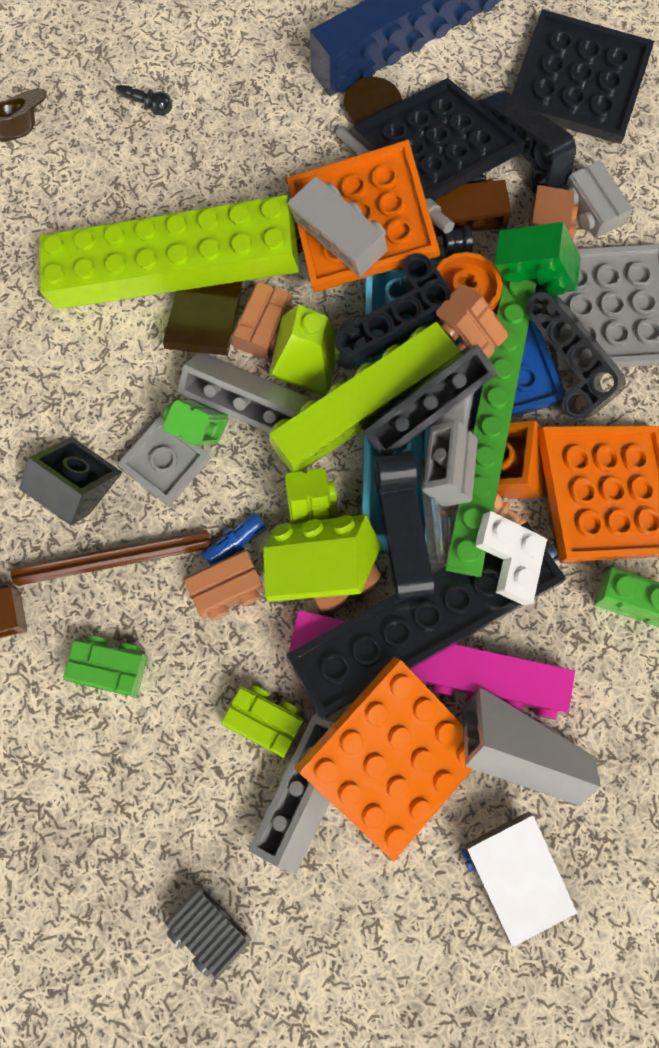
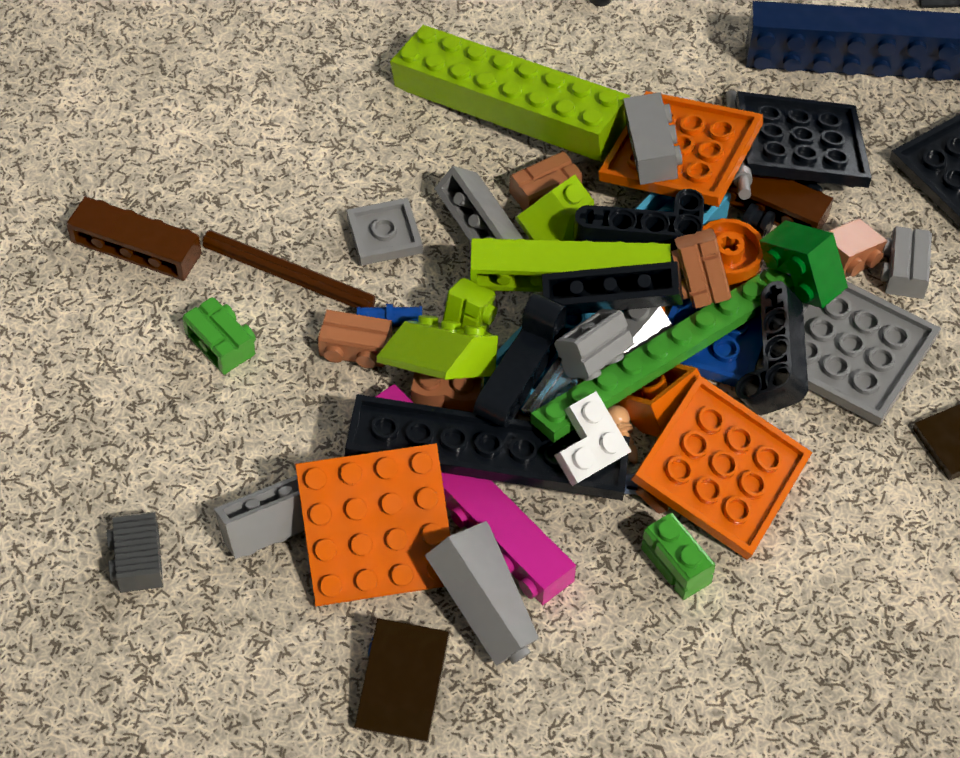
camera: 35 degrees right, 20 degrees down
(68, 479) = (302, 198): black slope -> none
(194, 422) = (429, 213): bright green brick -> none
(203, 319) = (500, 152): dark brown tile -> none
(263, 720) = (300, 438): lime brick -> none
(369, 98) = (776, 82): dark brown tile -> none
(546, 144) = (889, 187): black beam -> none

